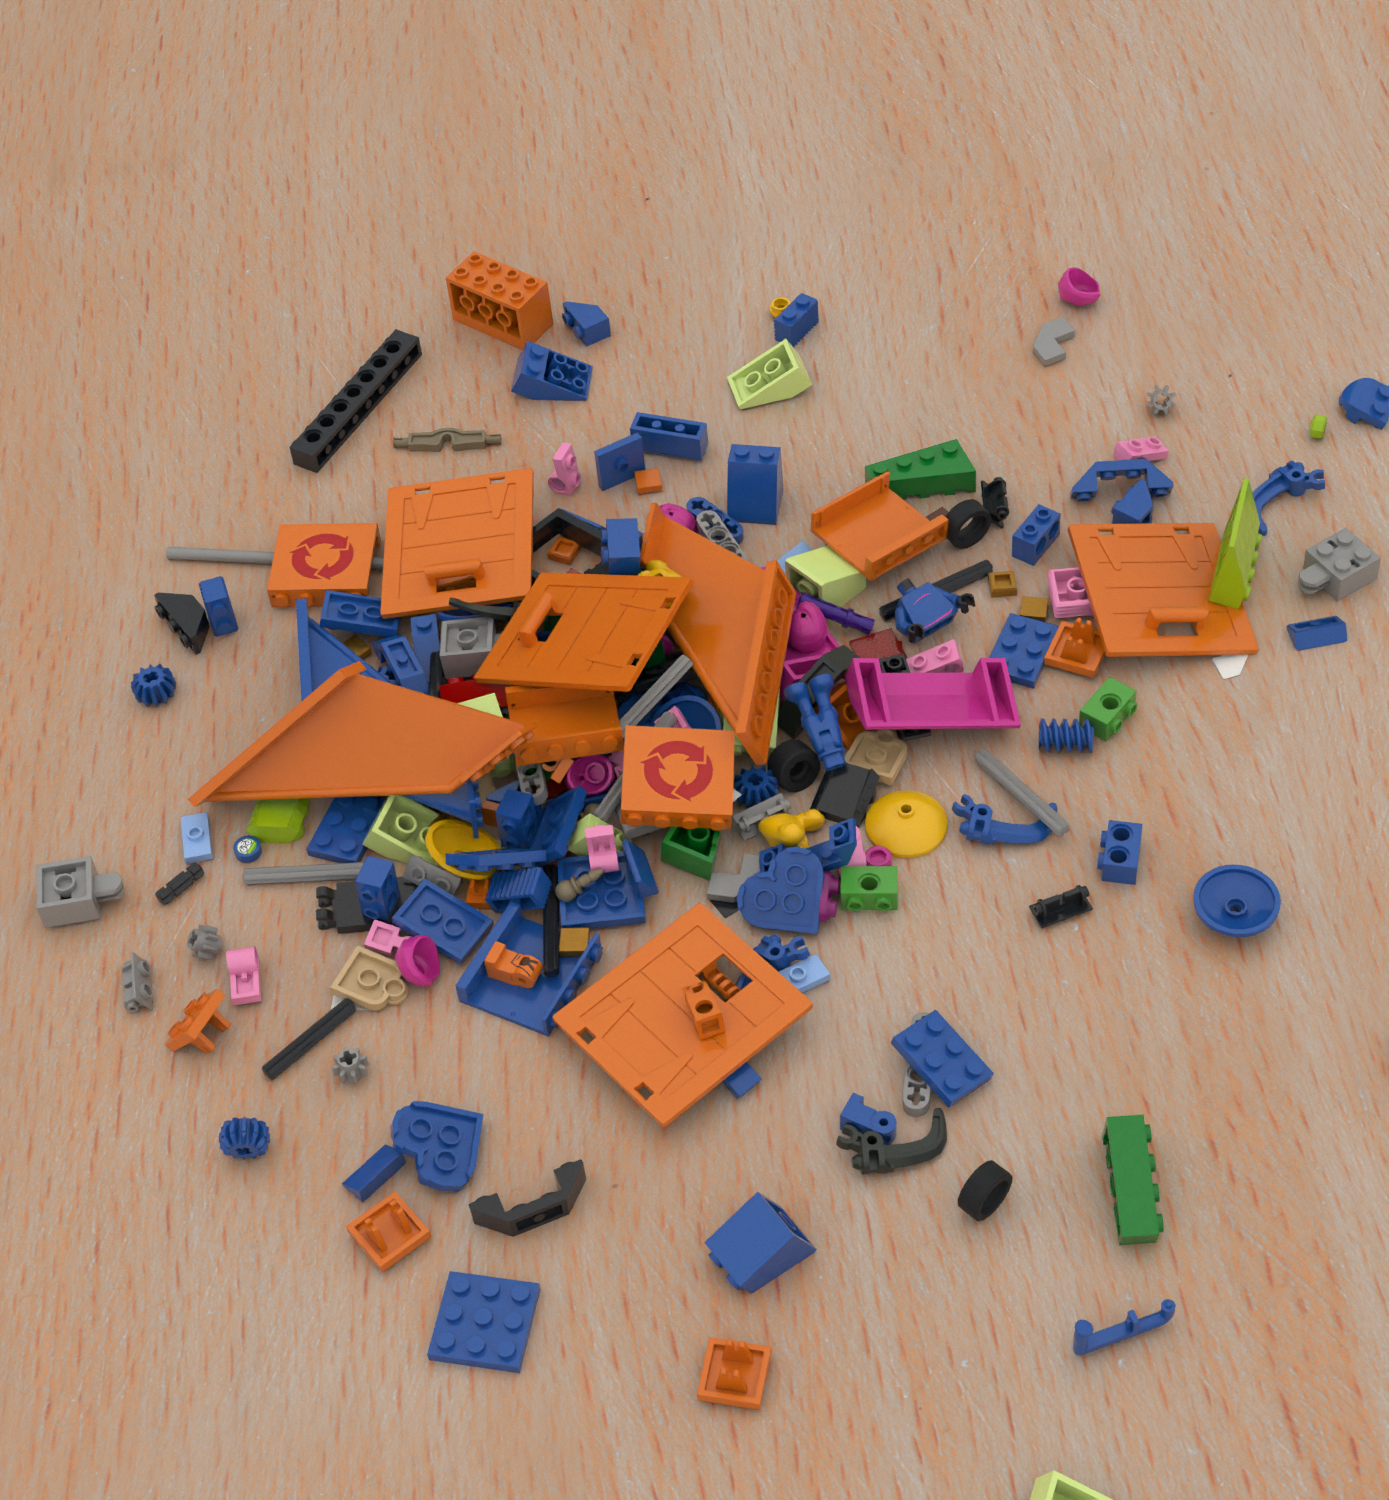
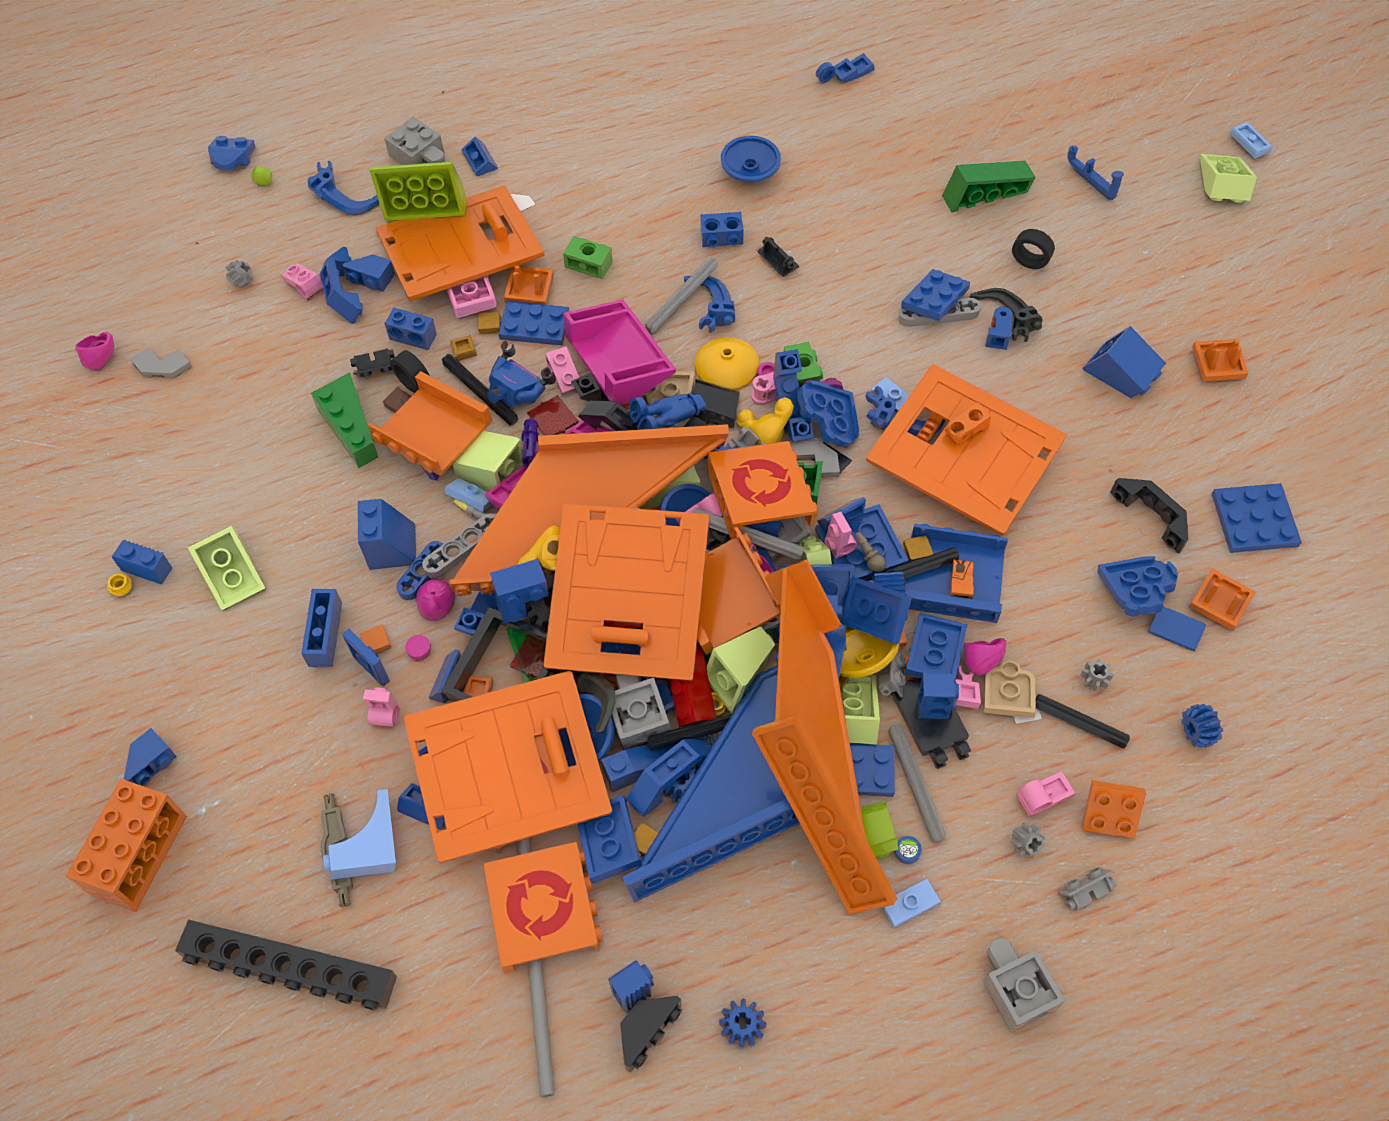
camera: 110 degrees left, 10 degrees up
(179, 883) = (967, 896): black axle -> none
(431, 458) = (369, 850): none -> light blue arch
(550, 375) = (233, 771): blue slope -> none
(627, 509) = (418, 647): none -> dark pink tile
(1066, 735) = (622, 276): blue piece -> none

